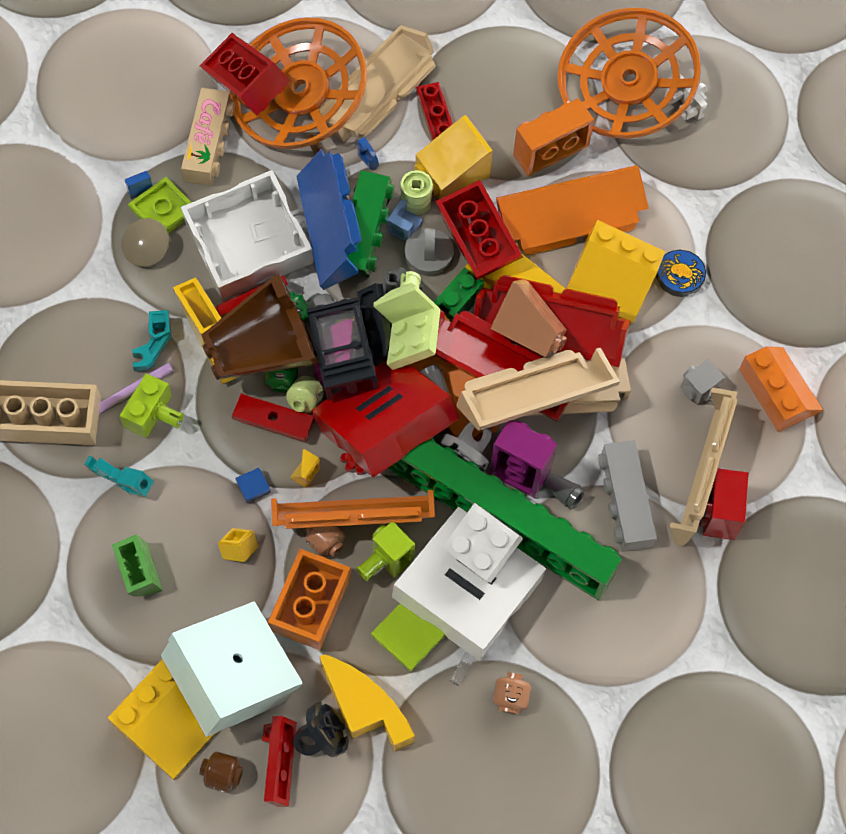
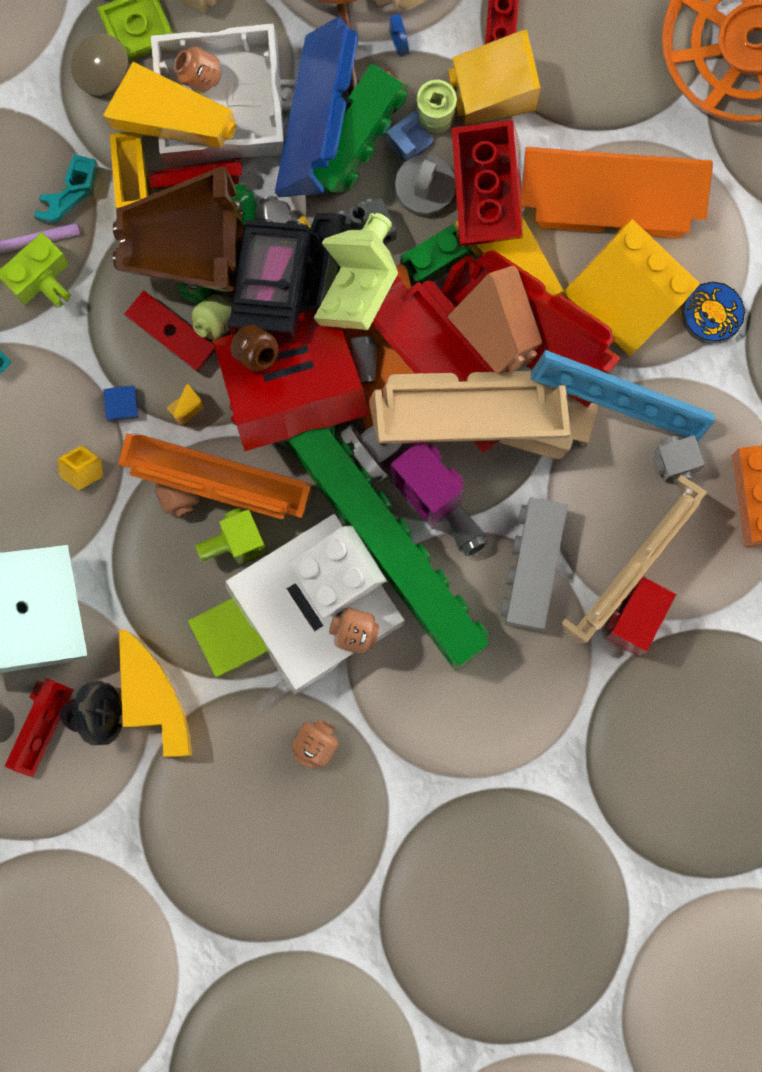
camera: 25 degrees right, 15 degrees up
(216, 252) = (167, 110): none -> yellow slope
(224, 220) = (197, 69): none -> nougat head
(309, 599) = (132, 560): orange brick -> none
(352, 397) = (254, 348): none -> reddish brown head
(513, 585) = (354, 630): none -> nougat head
(553, 136) = (627, 88): orange brick -> none
(642, 346) = (622, 396): none -> dark azure tile

